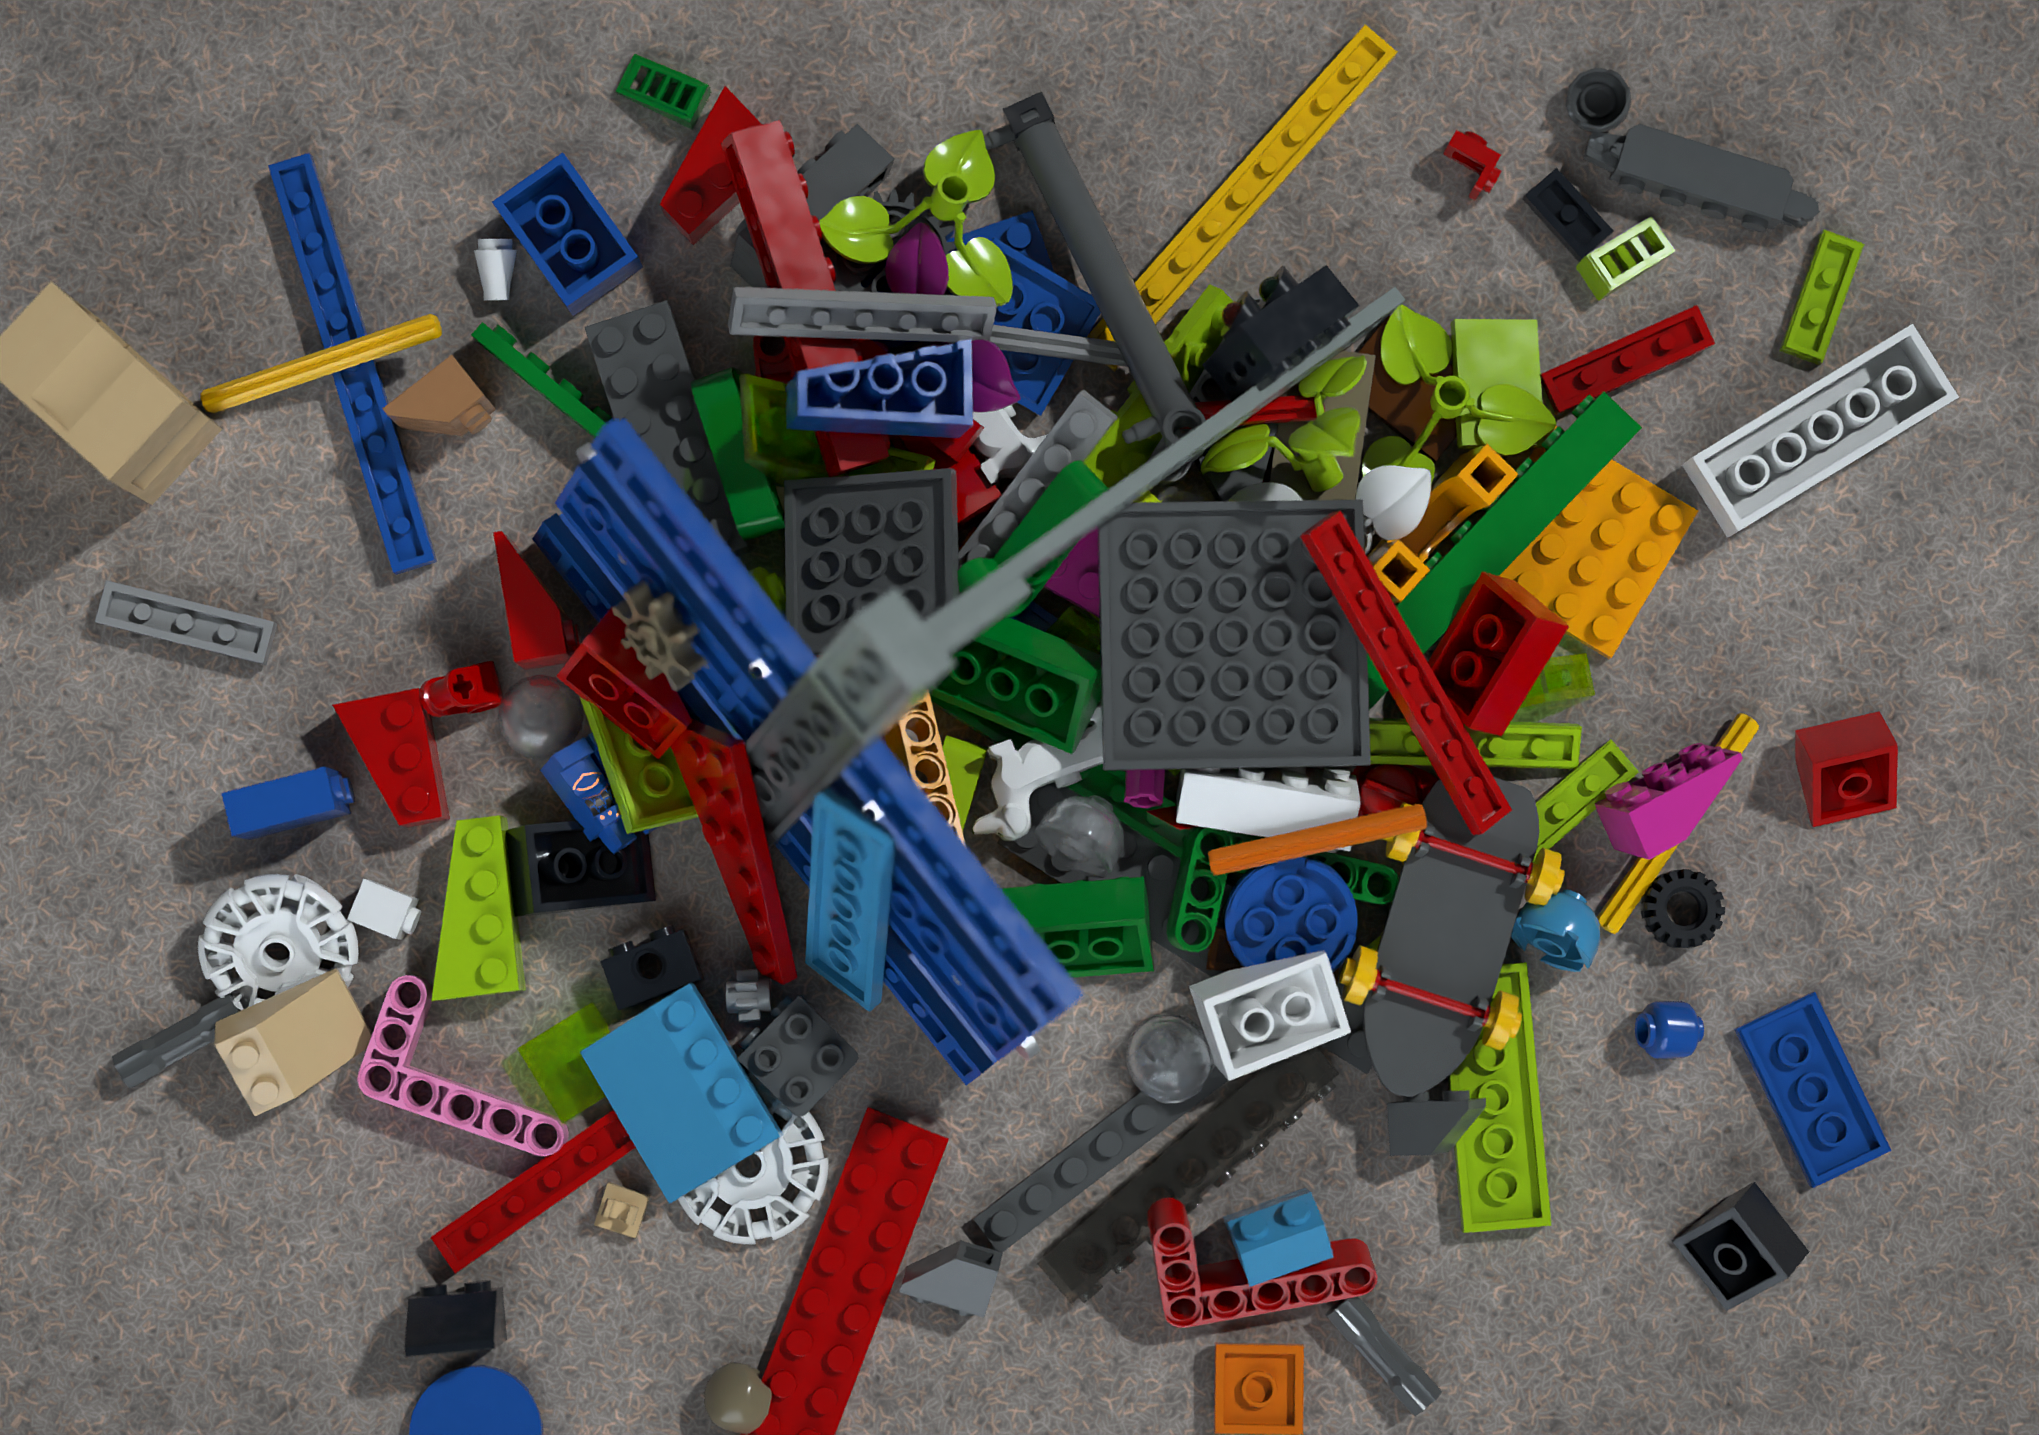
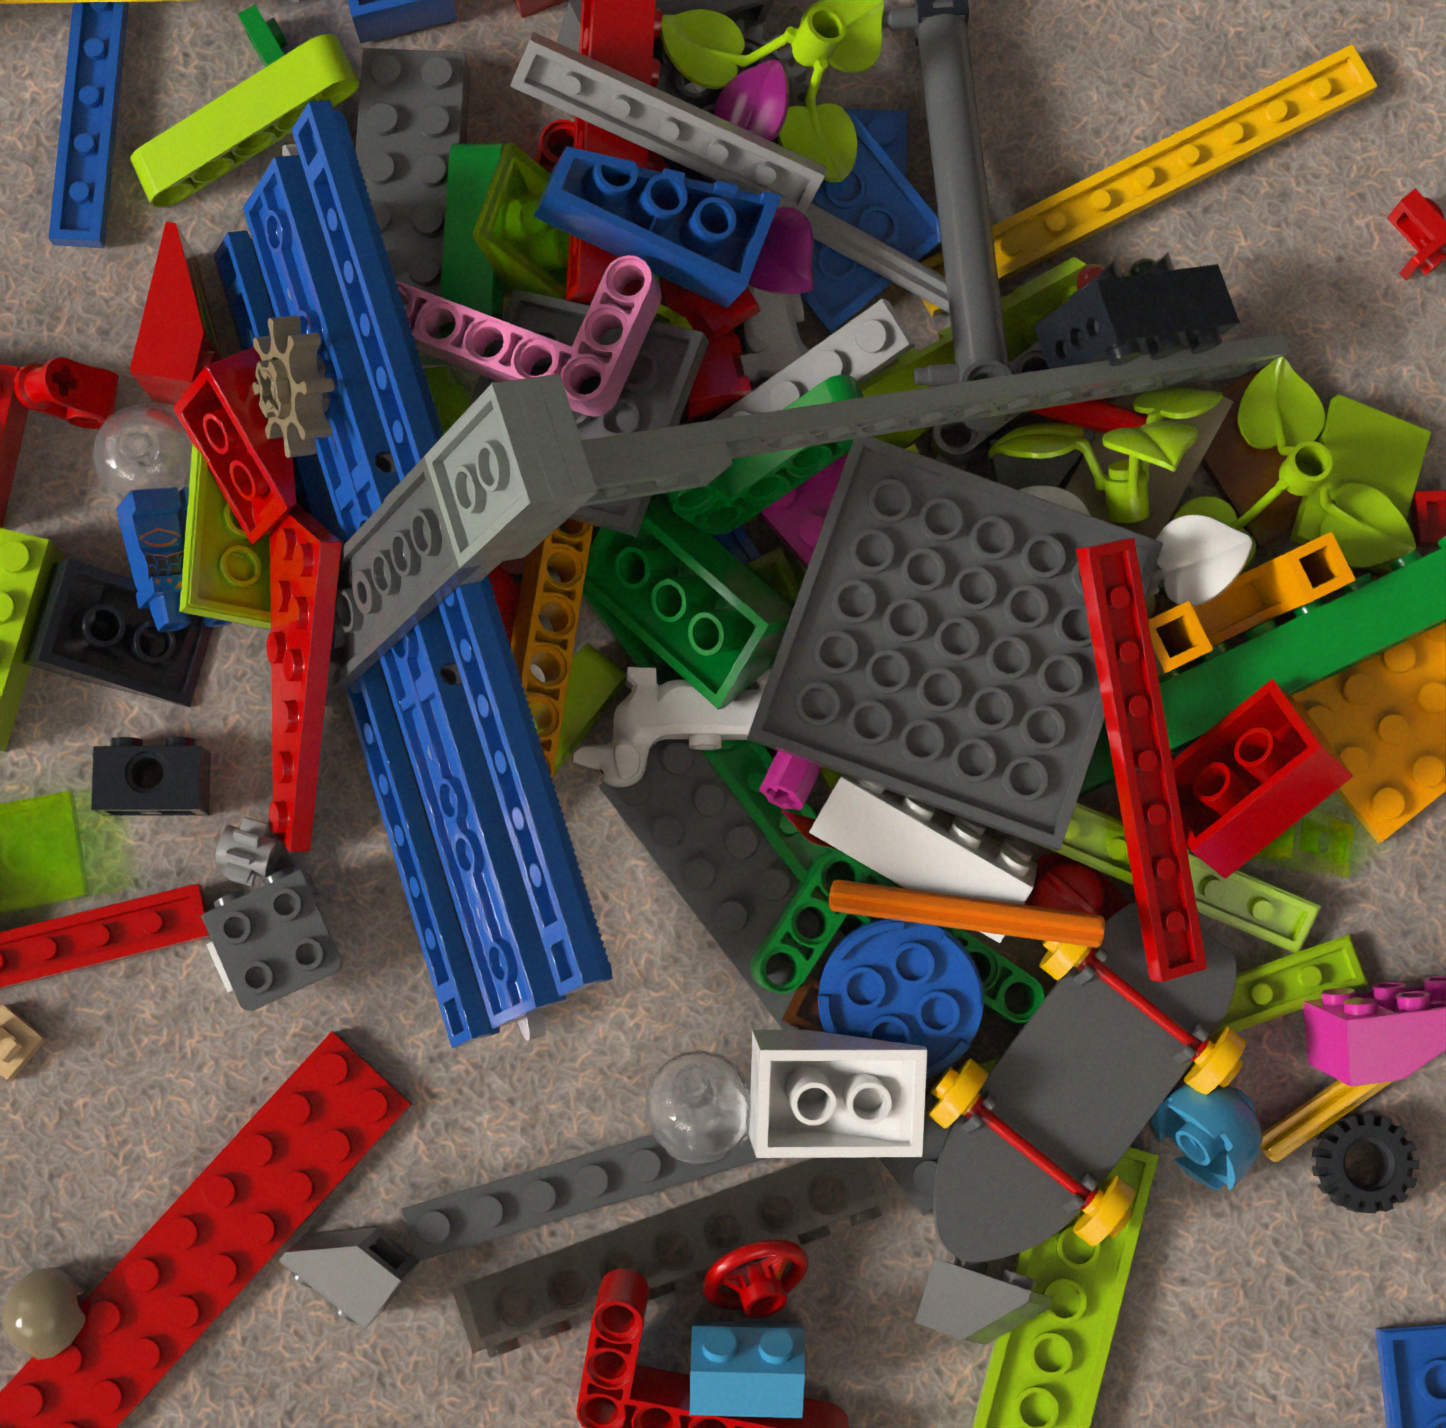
camera: 25 degrees right, 5 degrees down
(442, 403) = (169, 67): medium nougat slope -> none
(514, 422) = (243, 121): none -> lime beam
(681, 1092) = (125, 930): dark azure slope -> none
(766, 1187) = (137, 1054): white plate -> none
(816, 532) = (525, 348): none -> bright pink beam
(849, 898) = (393, 768): dark azure plate -> none
(1084, 832) = (698, 806): clear cylinder -> none
(1091, 924) = (663, 916): green slope -> none
(1265, 1172) = (758, 1284): none -> red piece
(1669, 1029) = (1299, 1300): blue head -> none

